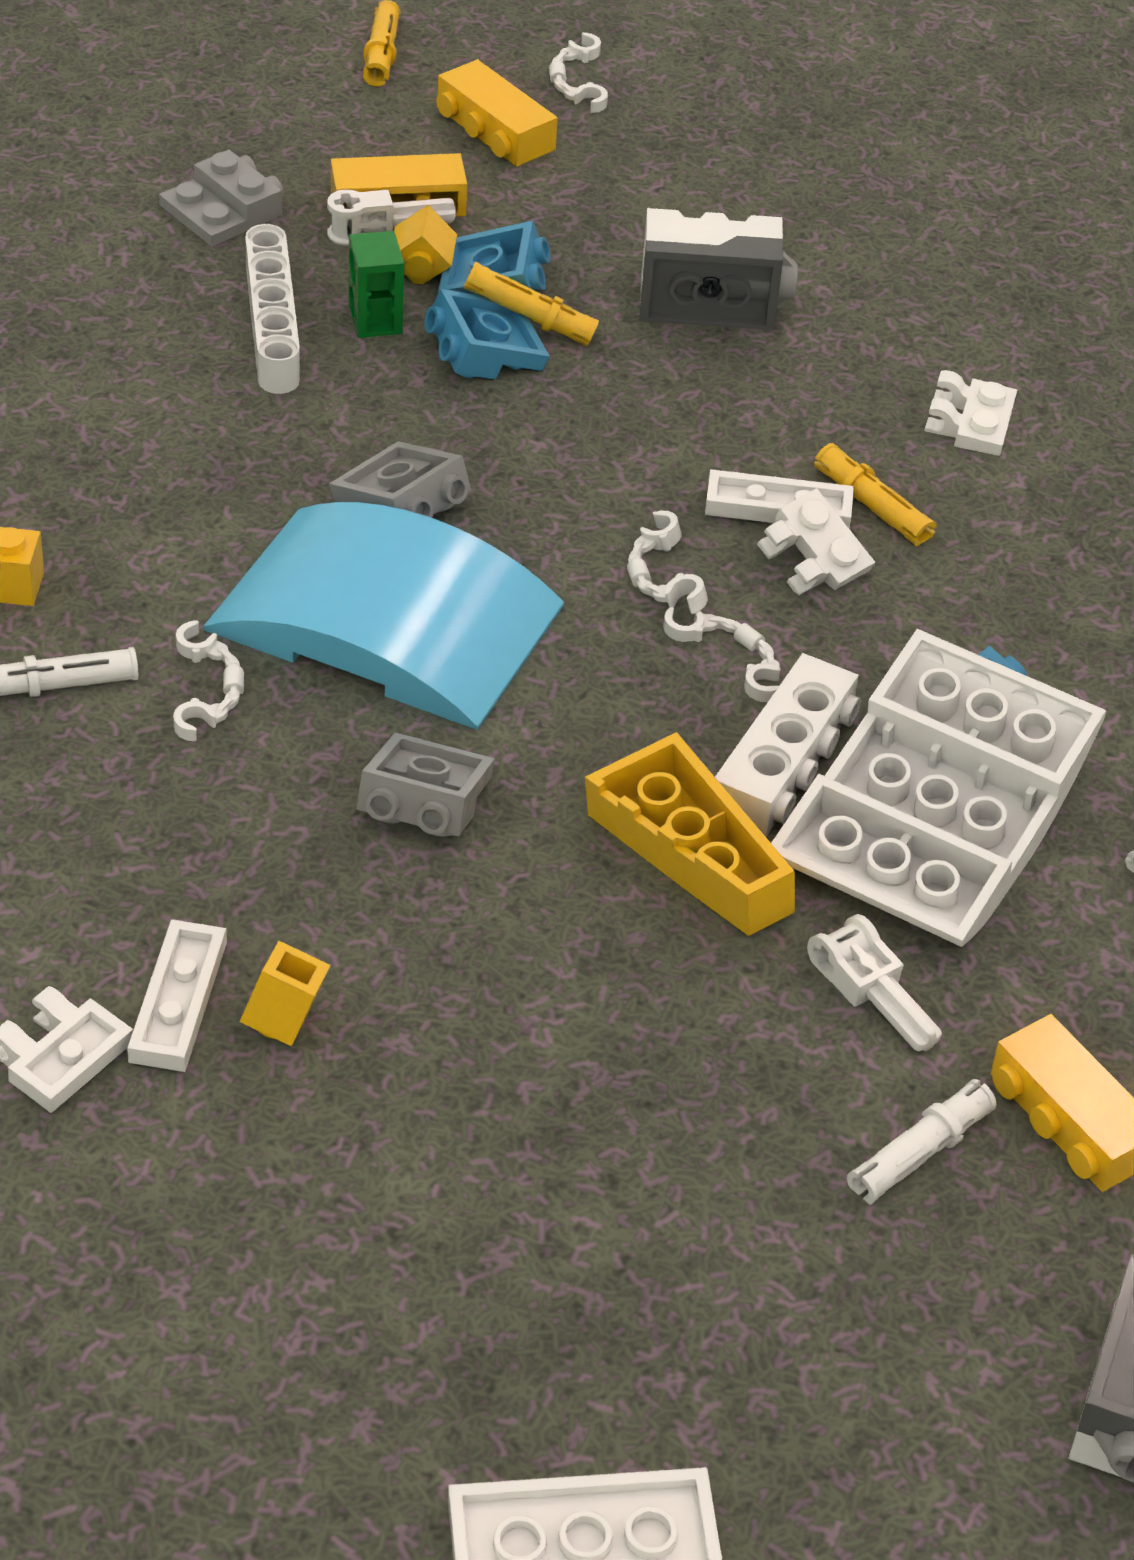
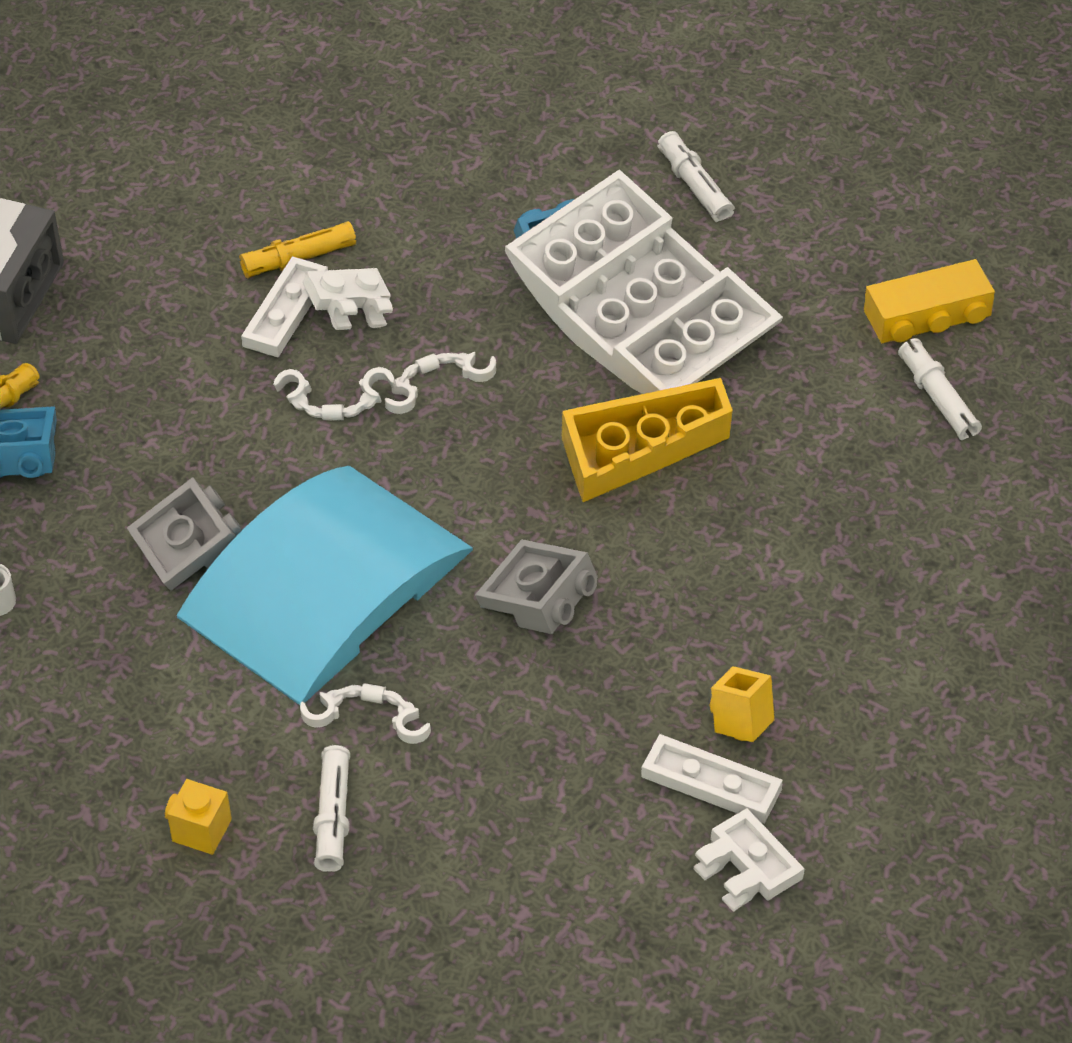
camera: 70 degrees left, 5 degrees up
(788, 739) = (552, 359): white brick -> none
(868, 970) = (788, 381): white connector -> none
(984, 417) = (228, 166): white plate -> none

